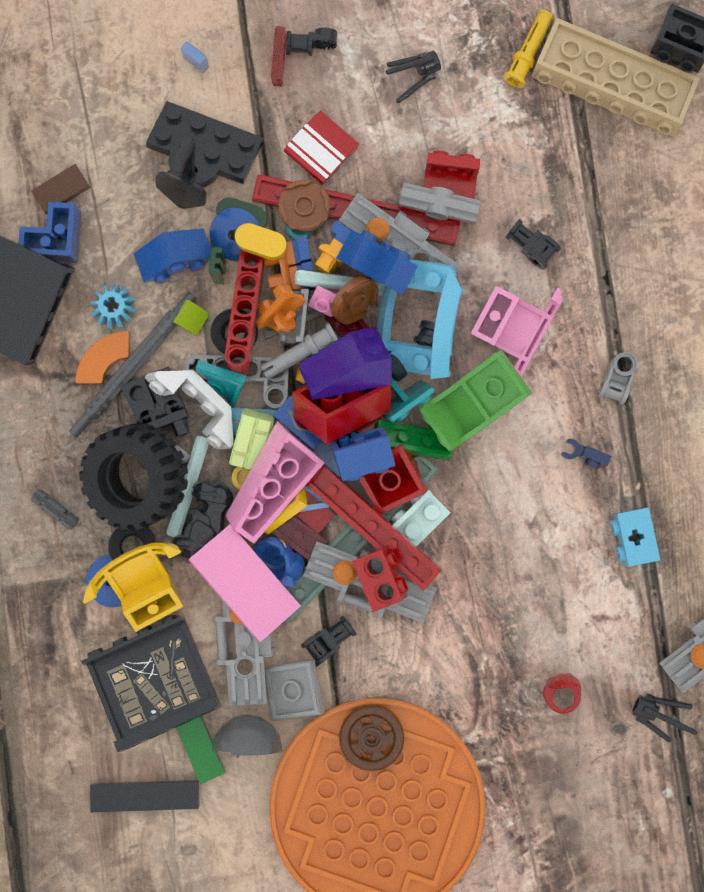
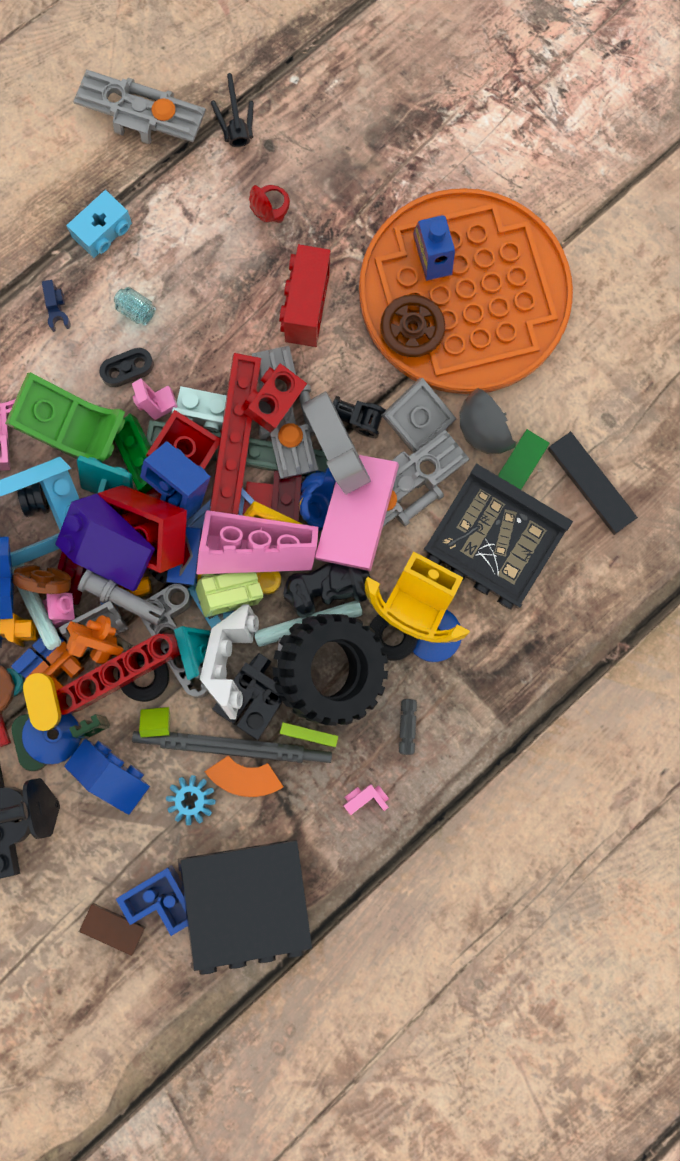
camera: 130 degrees left, 5 degrees down
(26, 433) = (358, 798): none -> bright pink bracket
(101, 426) = (308, 735): none -> lime tile
(282, 597) = (336, 443): none -> light grey beam
(425, 803) = (434, 241): none -> blue torso
(449, 482) = (154, 403): none -> bright pink bracket
(456, 665) = (305, 295): none -> red brick
(495, 479) = (126, 366): none -> black plate
(544, 519) = (134, 306): none -> clear light blue brick

